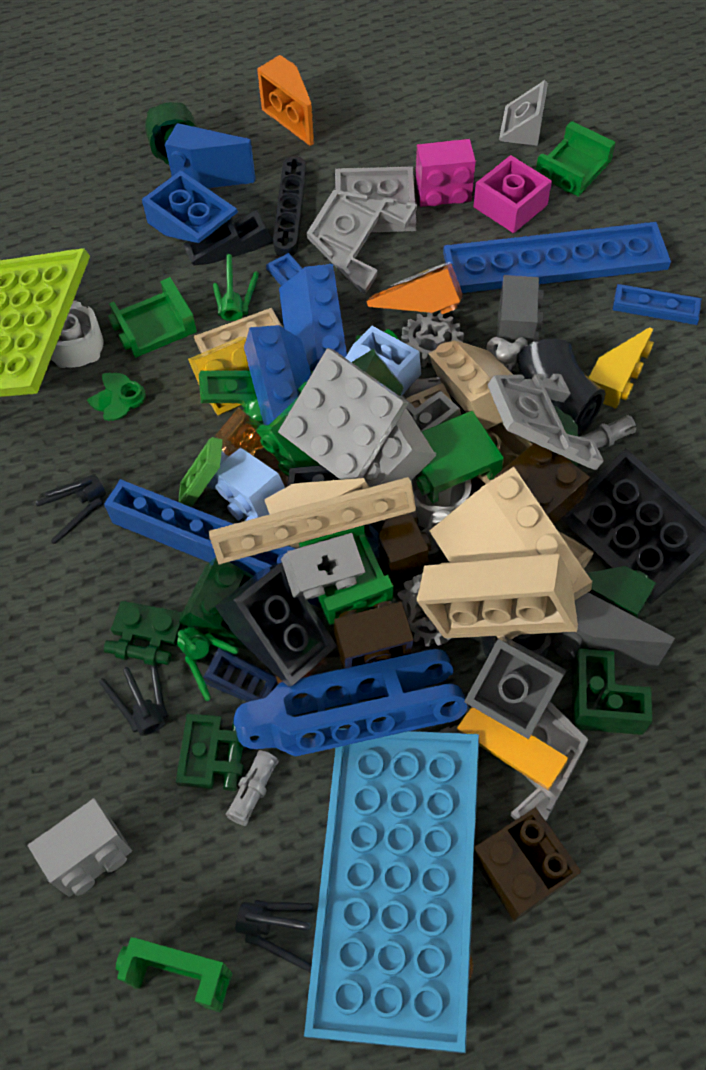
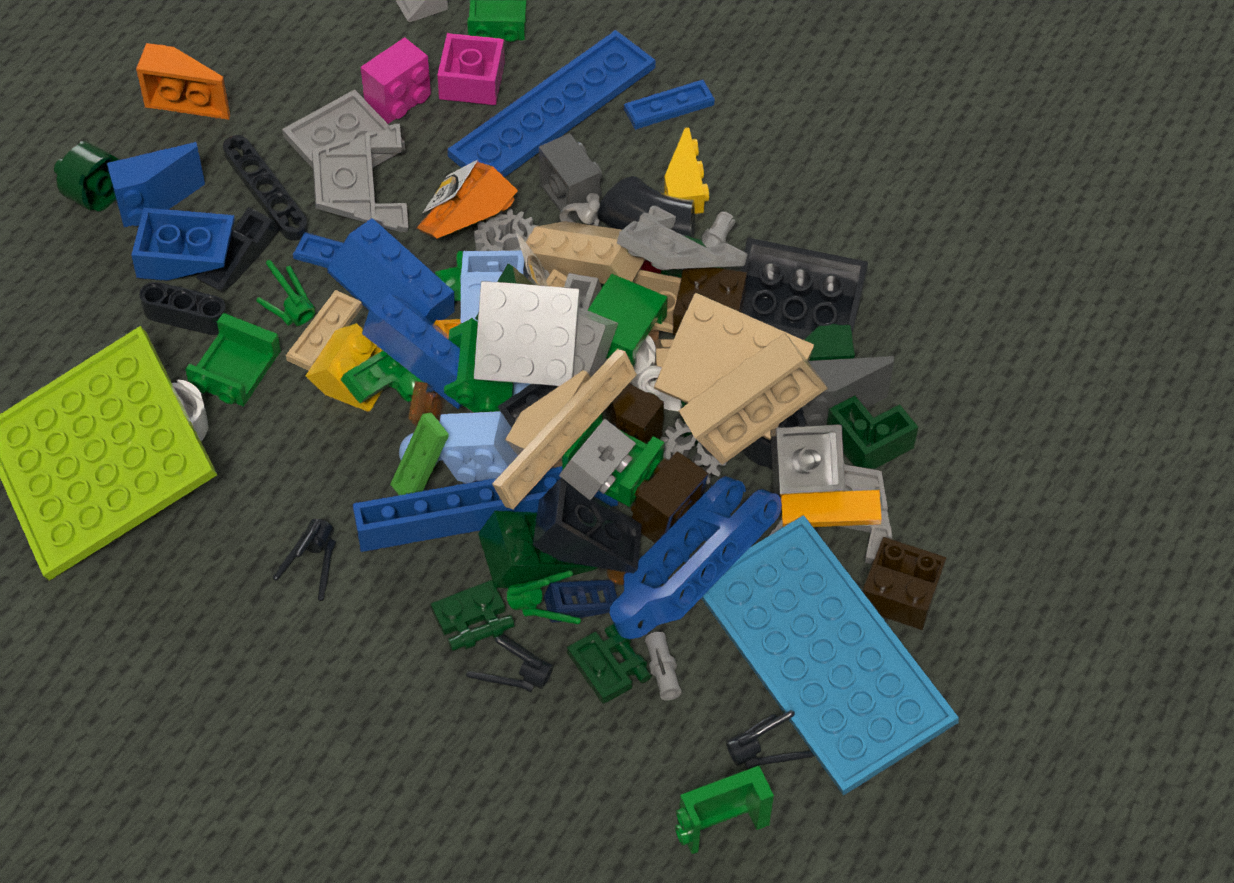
camera: 40 degrees left, 5 degrees down
(80, 849) = (579, 782): light grey brick -> none
(115, 399) = (259, 448): green plate -> none
(152, 258) = (182, 307): none -> black beam
(418, 369) = (532, 263): none -> sticker

